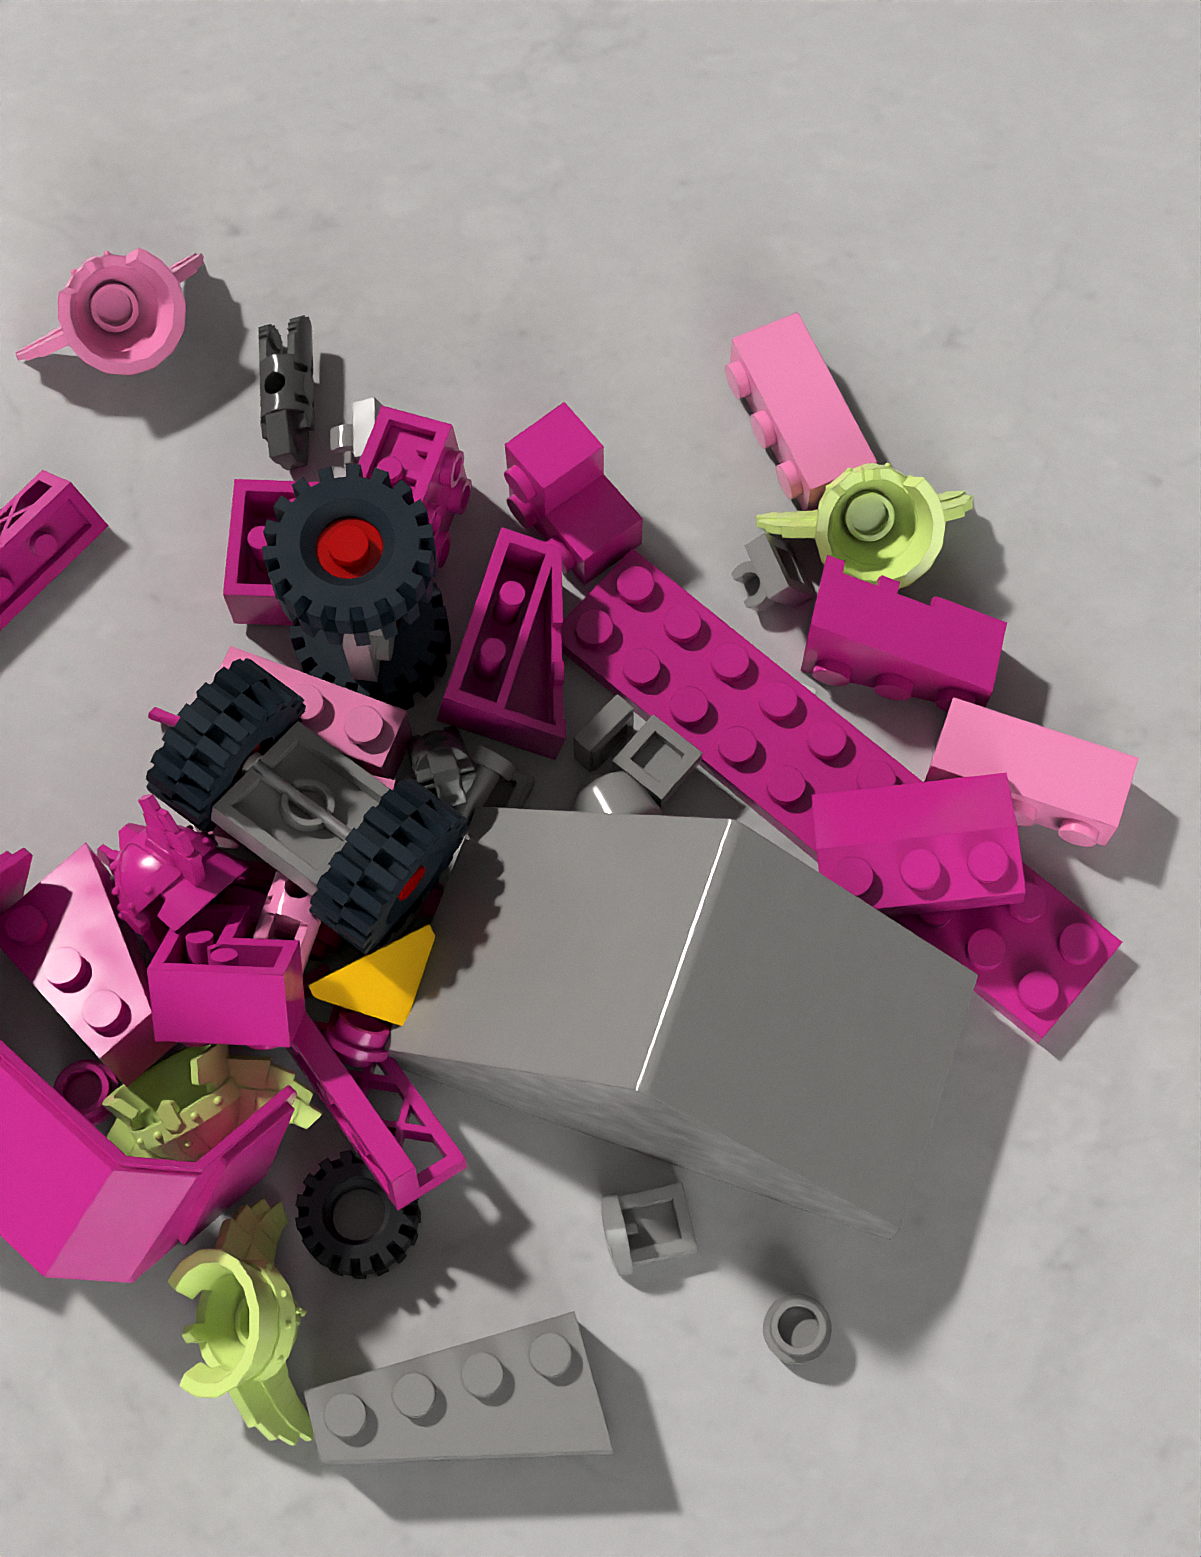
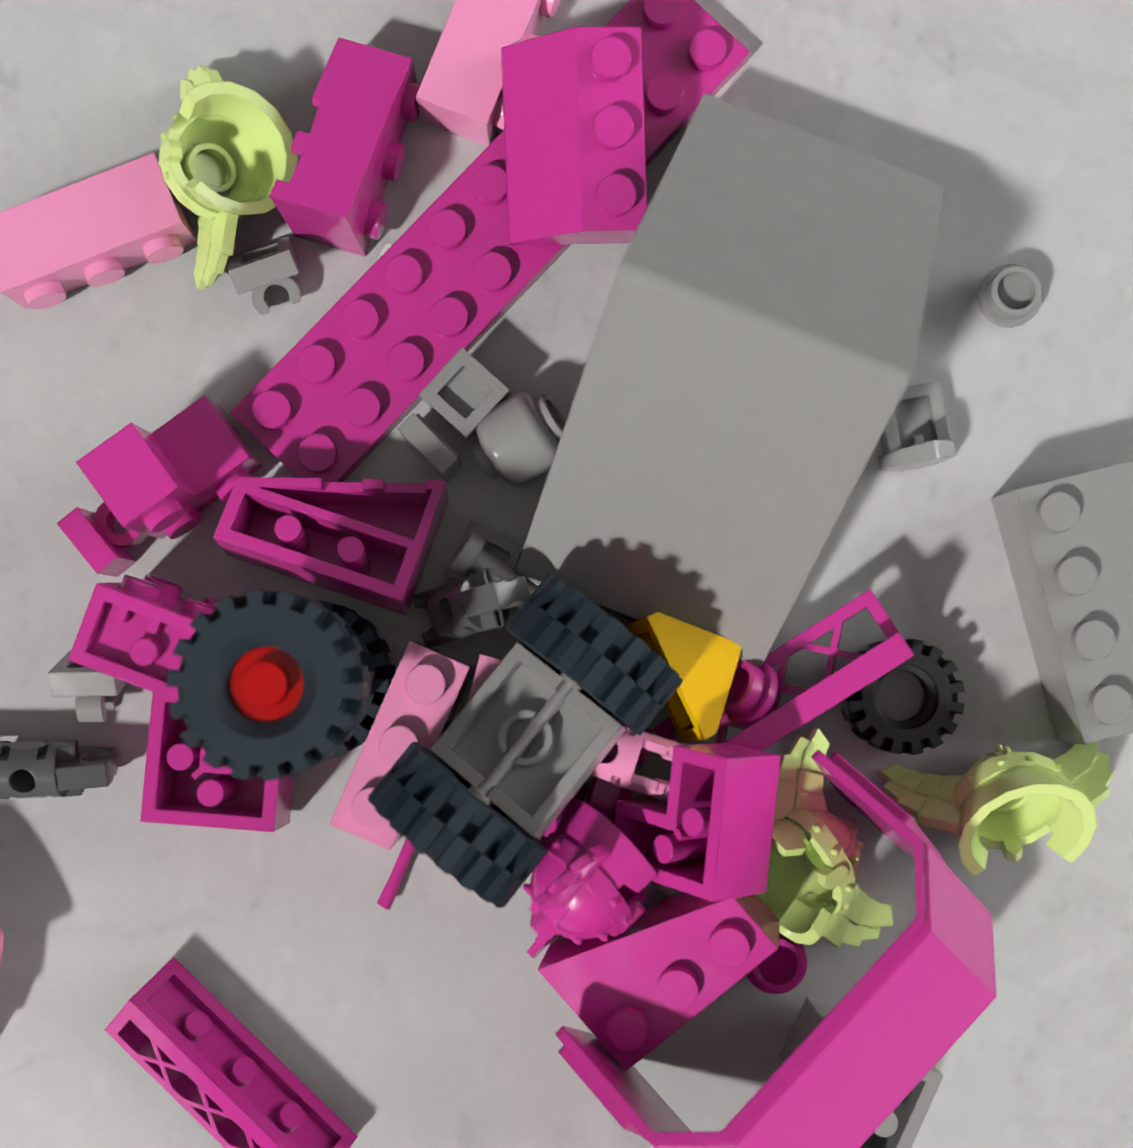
camera: 90 degrees left, 15 degrees up
(489, 438) = (99, 542): none -> dark pink tile

